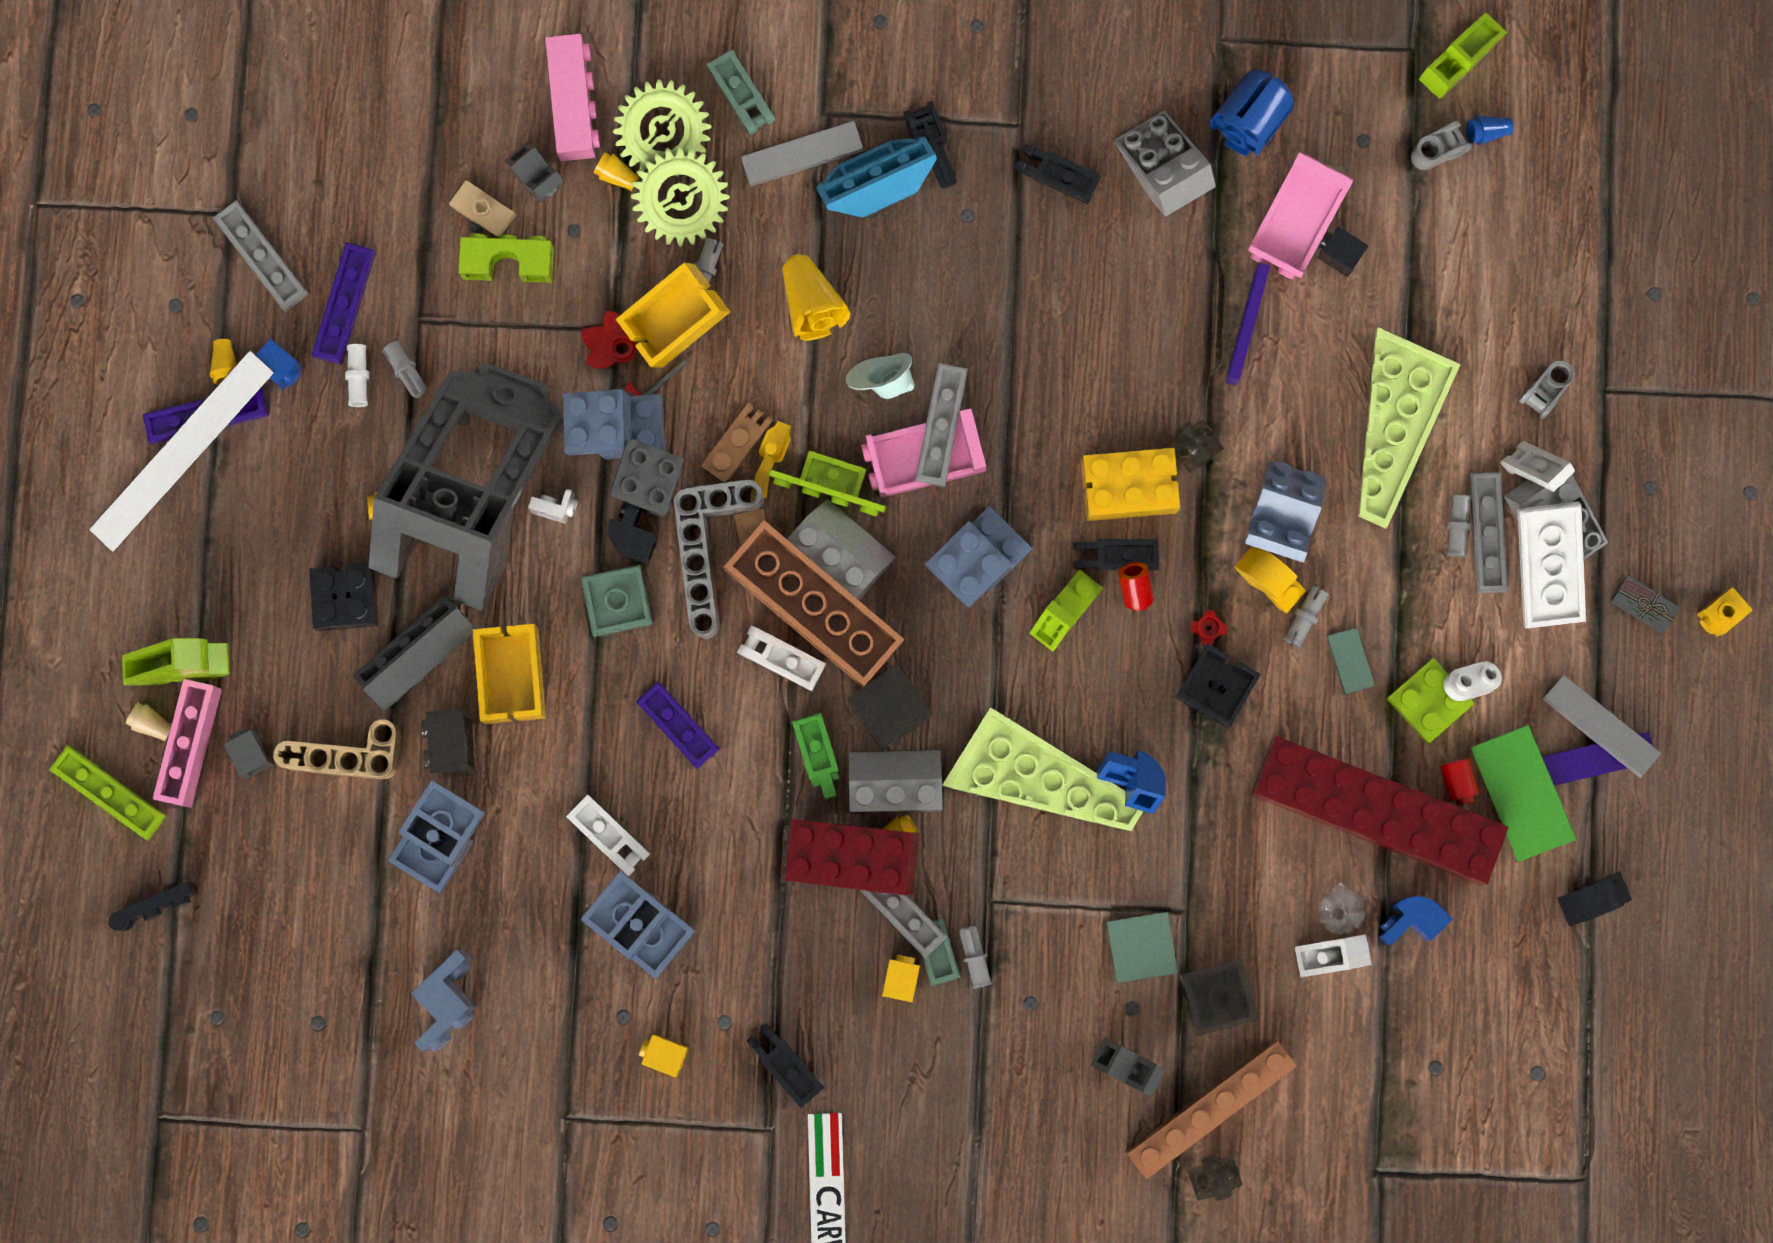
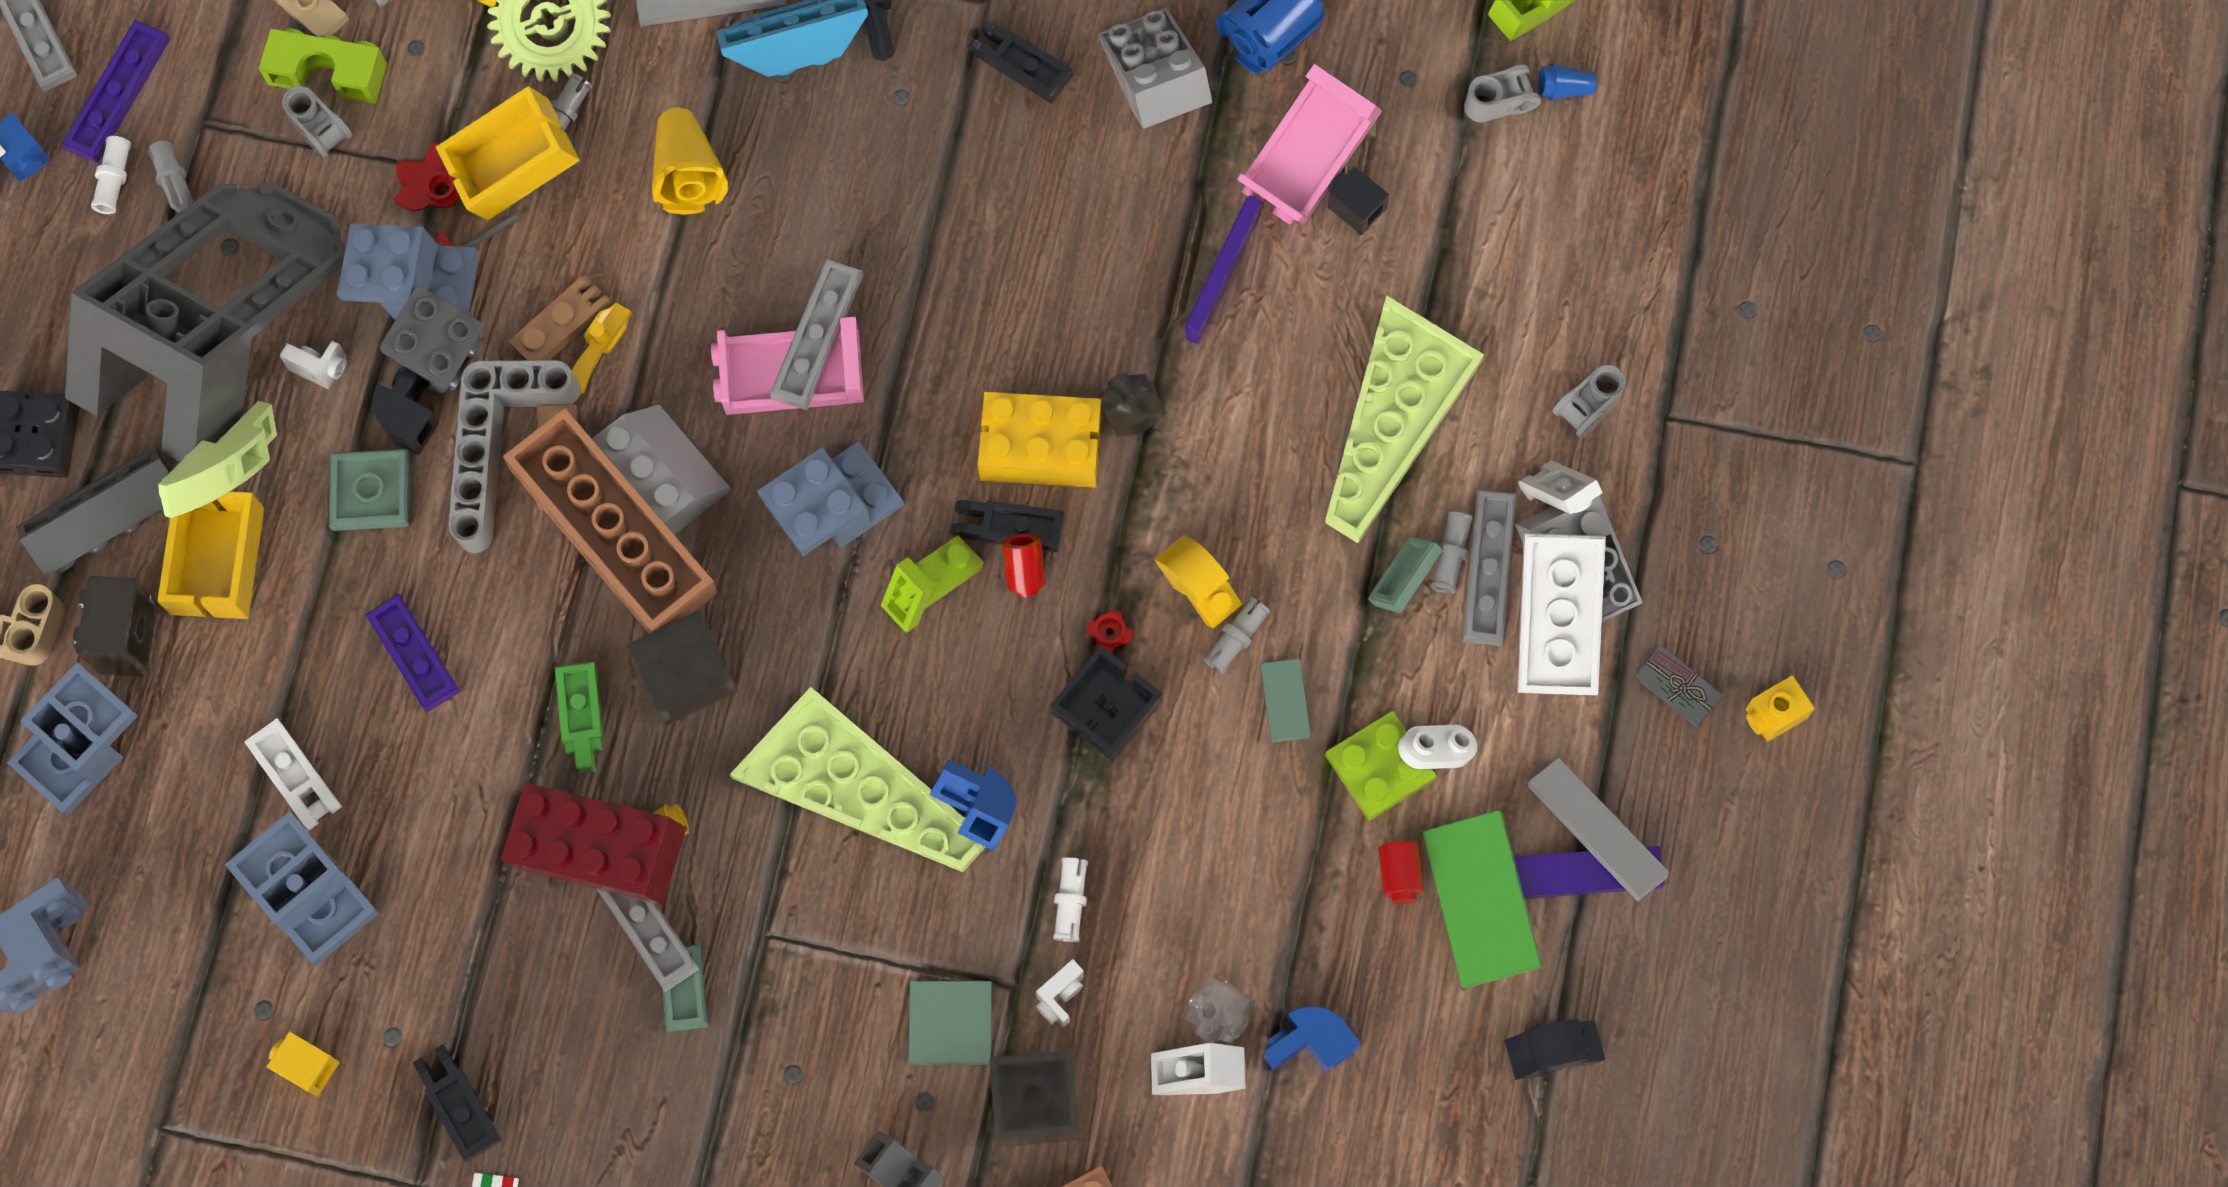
camera: 10 degrees right, 10 degrees down
(505, 607) = (220, 466): none -> yellowish green slope
(514, 311) = (317, 125): none -> light grey piece
(782, 658) = (561, 589): white plate -> none
(831, 478) = (666, 378): lime bracket -> none
(884, 375) = (757, 267): light aqua piece -> none
(895, 782) = (670, 765): light grey slope -> none
(901, 978) = (628, 1013): yellow brick -> none
(975, 957) = (730, 1002): light grey axle -> none
(1215, 841) = (1070, 900): none -> white pin
(1222, 907) = (1062, 985): none -> white bracket
(1286, 510) = (1230, 497): sand blue bracket -> none
(1379, 811) = (1288, 892): dark red brick -> none
(1426, 549) = (1405, 574): none -> sand green tile

